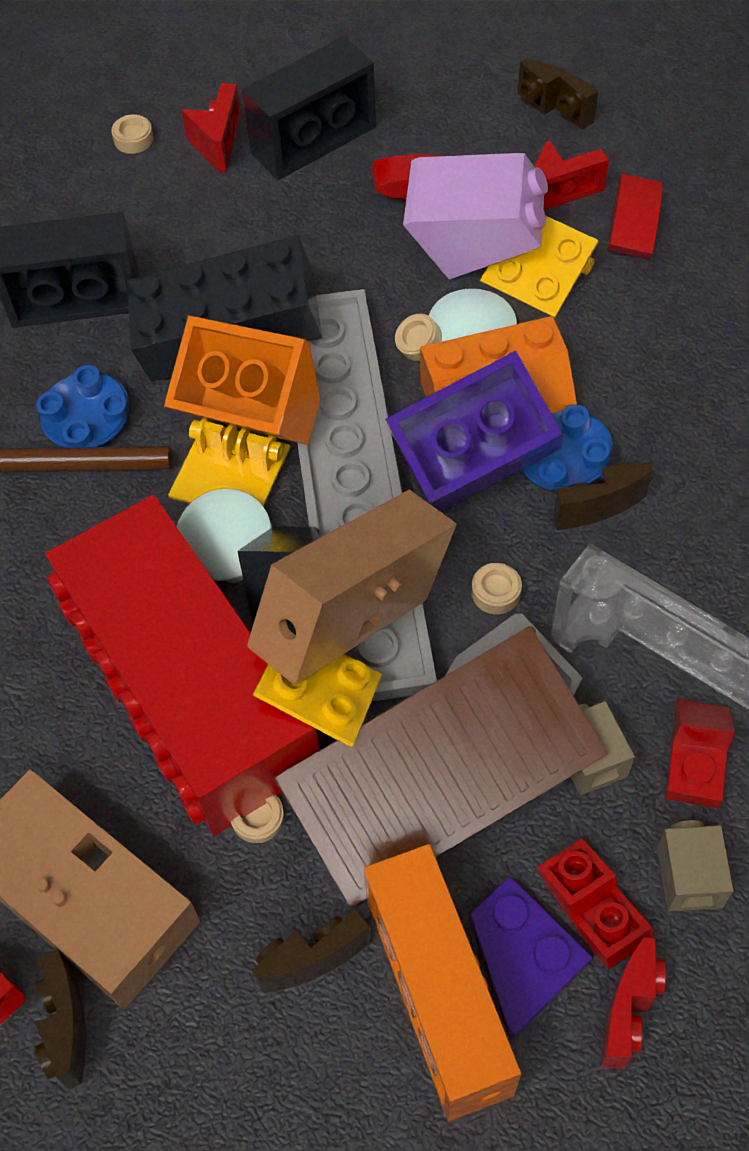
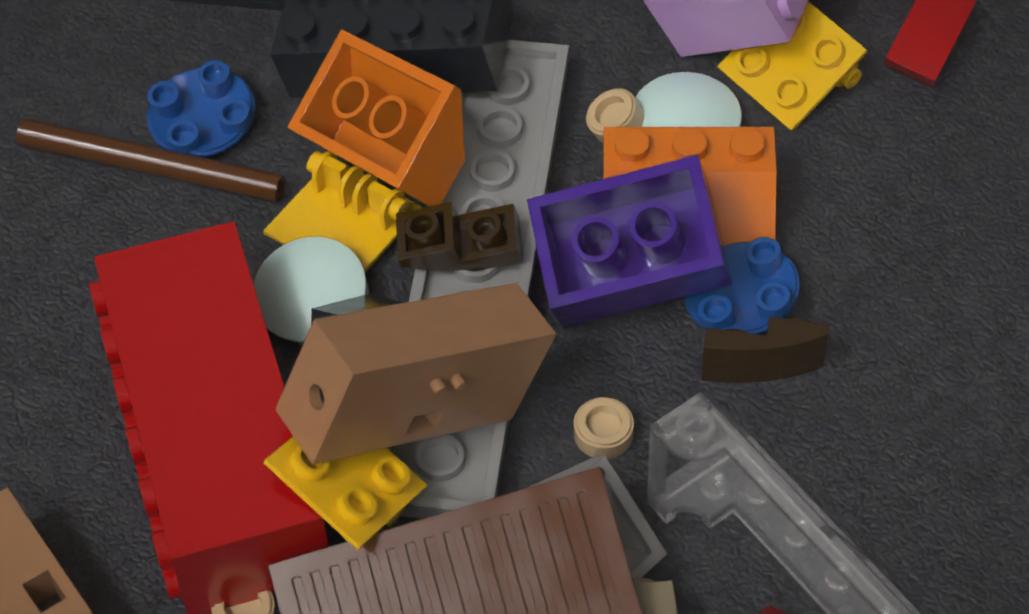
camera: 15 degrees right, 5 degrees down
(335, 466) = (447, 241): none -> dark brown slope

